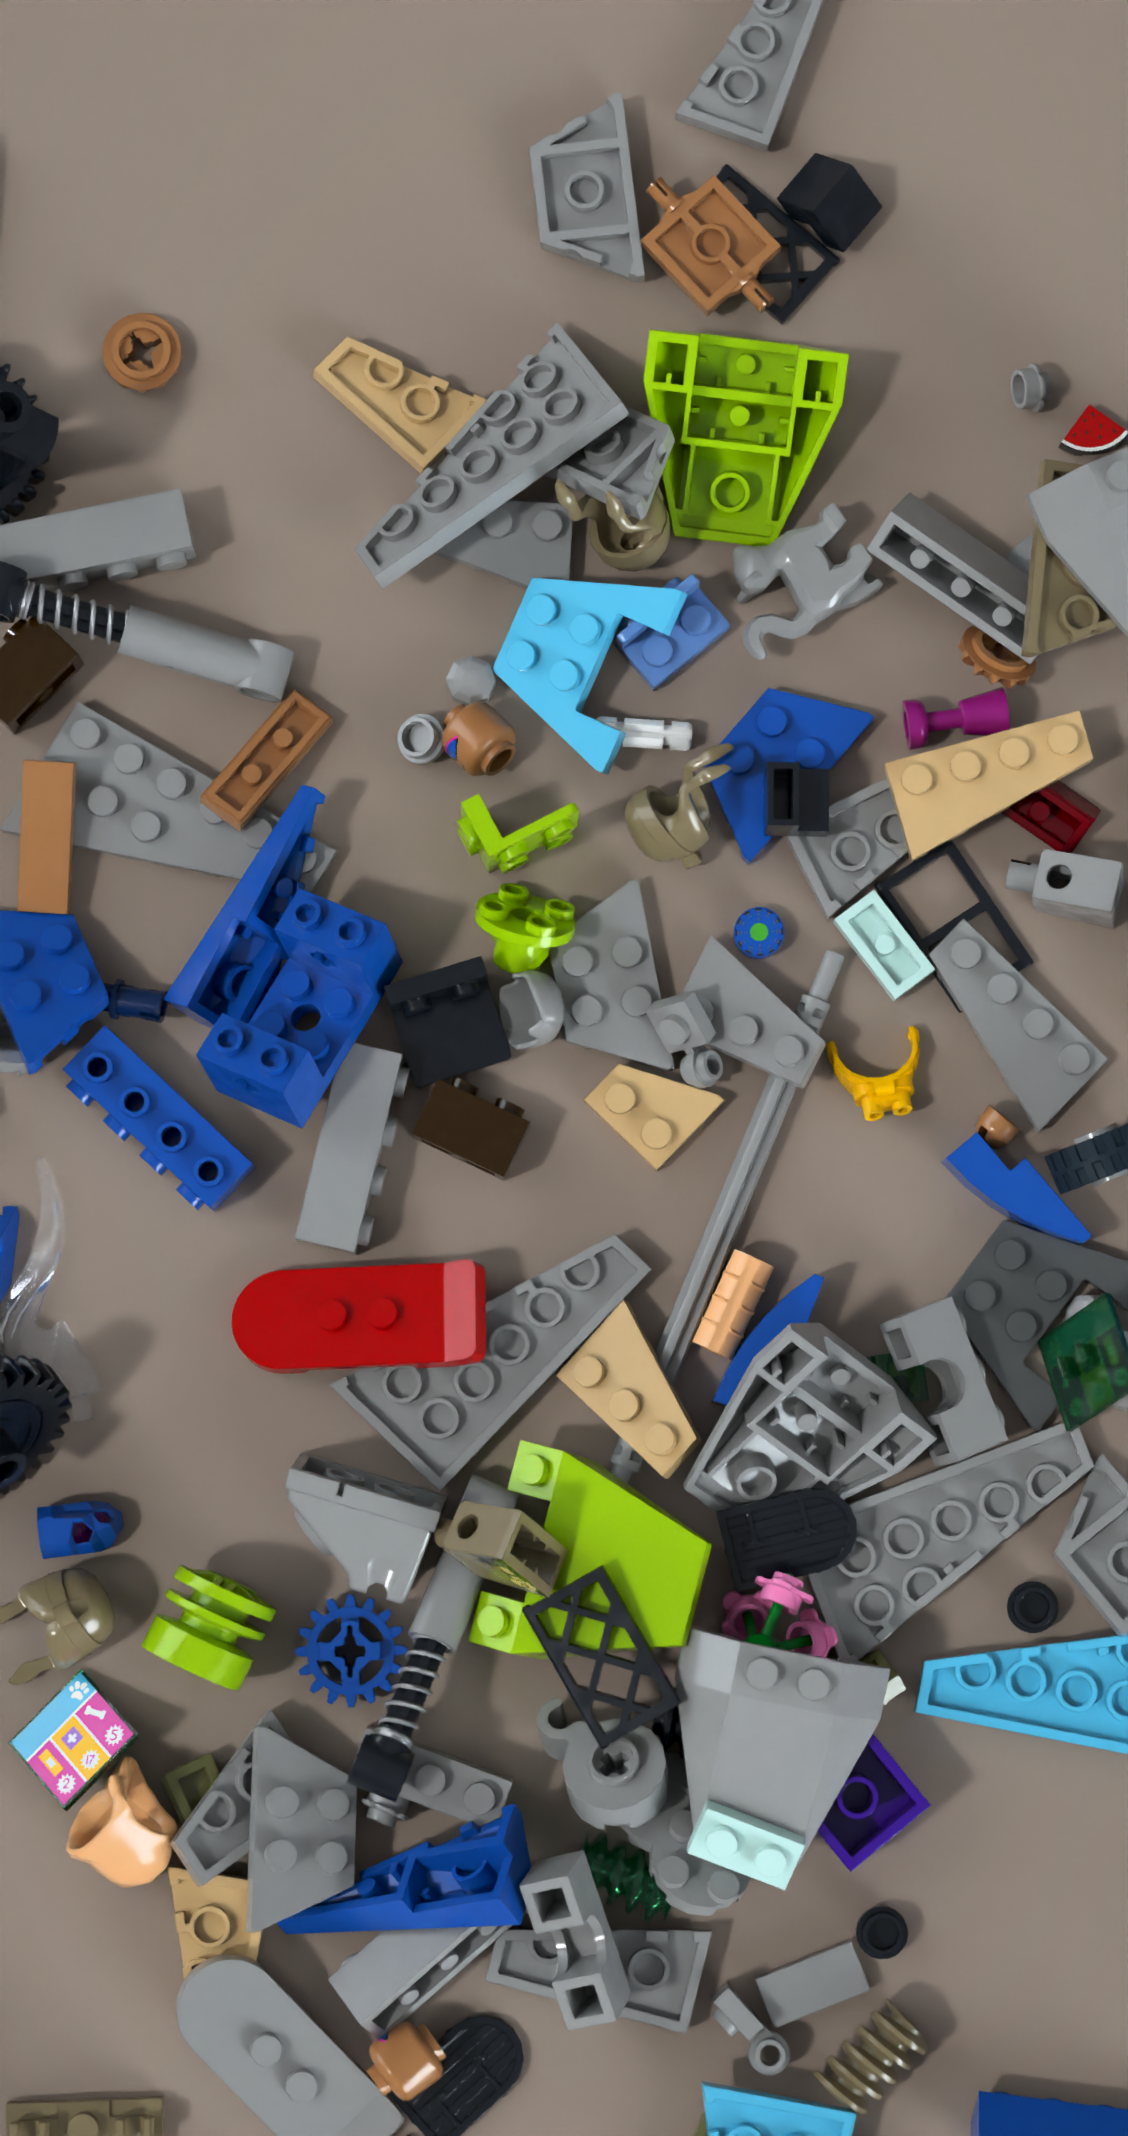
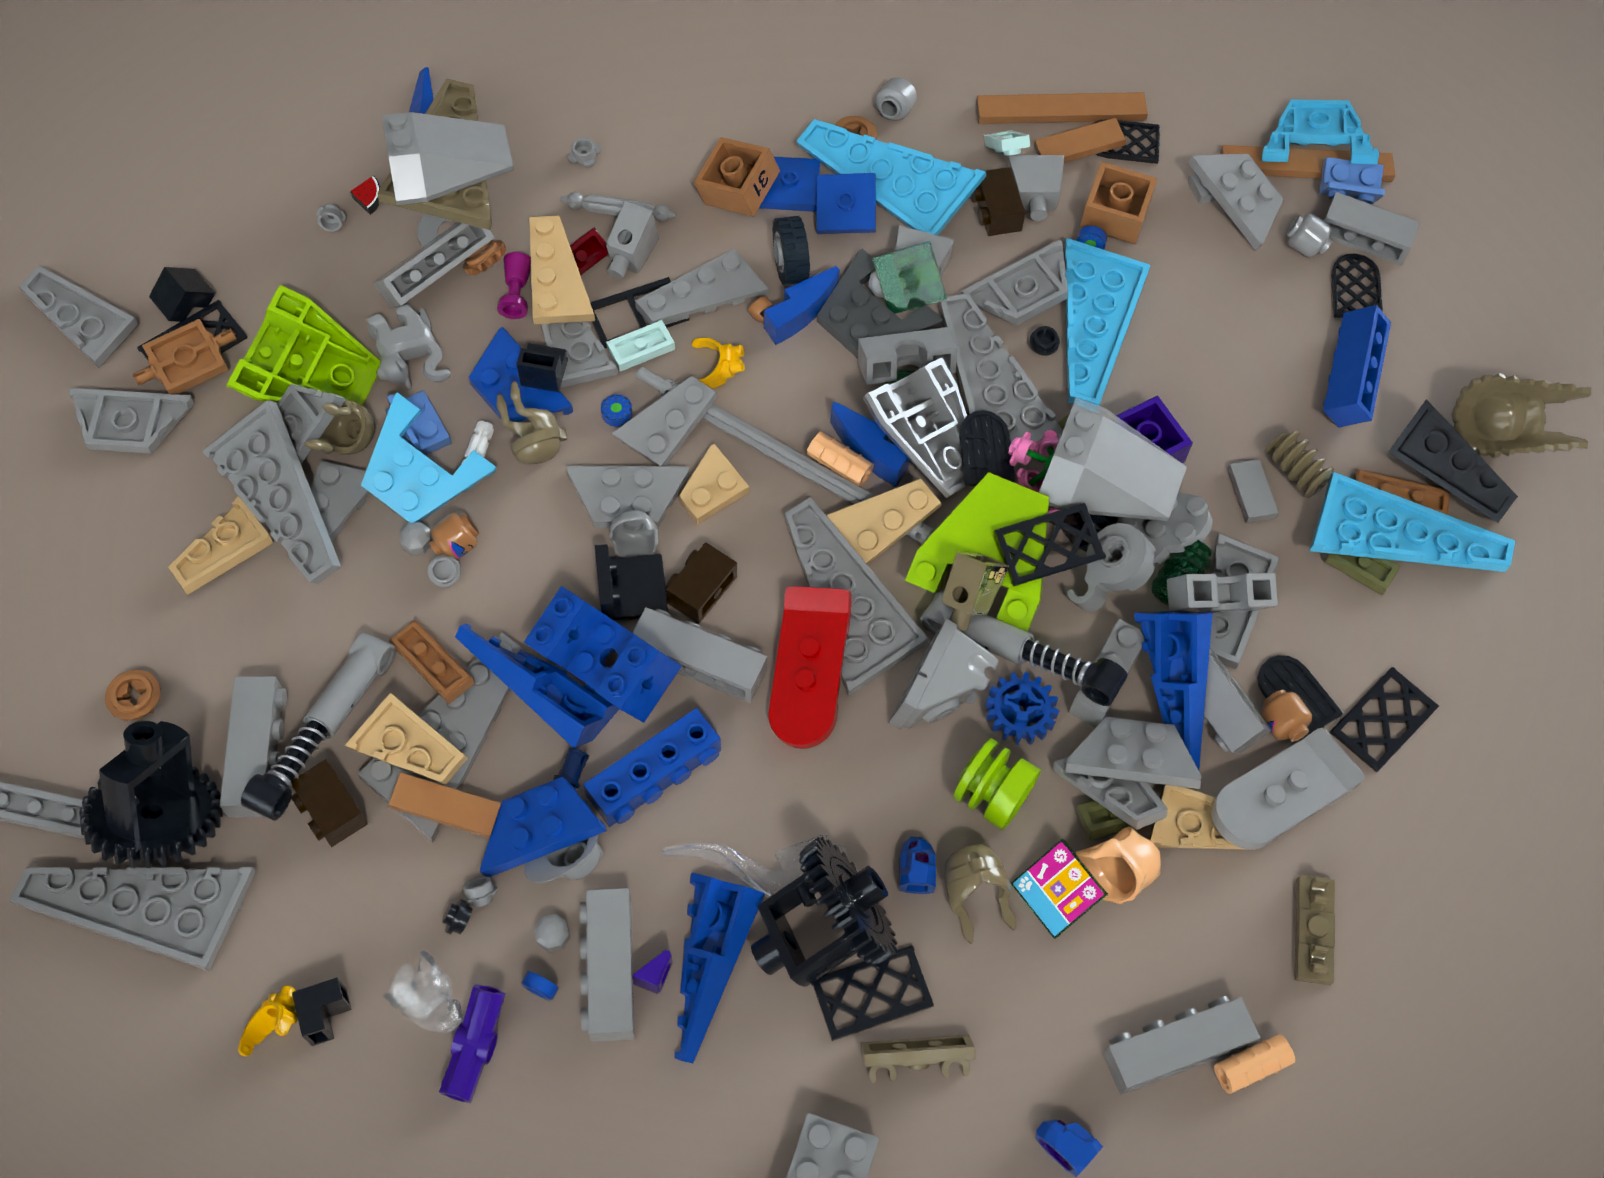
camera: 80 degrees left, 20 degrees down
(126, 760) = (406, 741): none -> tan wing
(385, 1810) = (1123, 705): light grey plate -> none
(508, 853) = (519, 533): lime bracket -> none
(524, 926) = (581, 528): lime plate -> none
(685, 1026) = (665, 450): light grey plate -> none
(737, 2016) = (1270, 528): light grey plate -> none
(746, 1844) = (1173, 487): light aqua plate -> none
(881, 1932) = (1226, 448): black plate -> none

